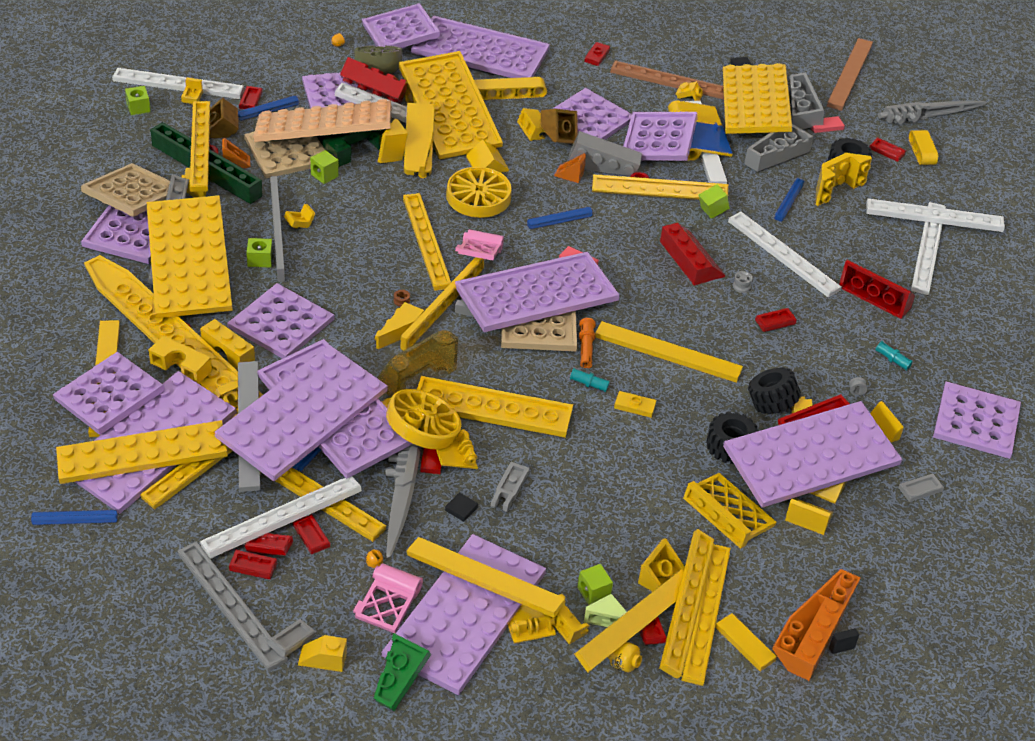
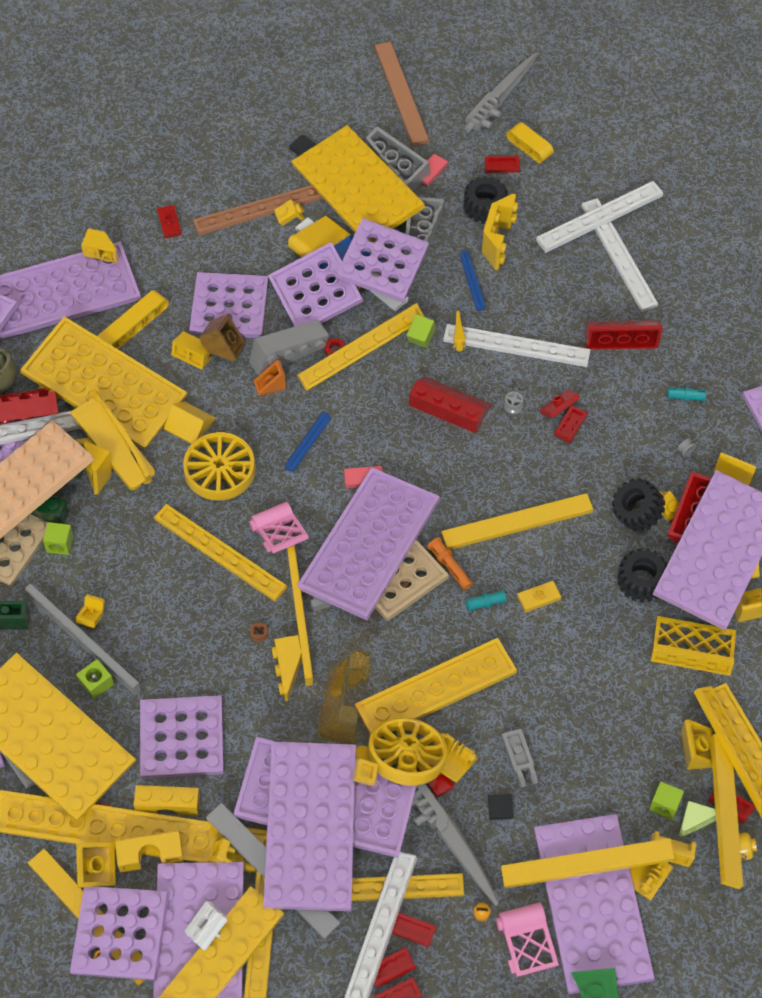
camera: 35 degrees left, 15 degrees up
(135, 343) = (95, 864): none -> yellow slope
(165, 419) = (206, 925): none -> white piece
(374, 402) = (365, 772): none -> yellow tile
(528, 34) = (99, 246): none -> yellow slope
(720, 122) = (377, 250): none -> lavender piece
(741, 219) = (459, 337): none -> yellow piece
(779, 301) = (559, 403): none -> red plate

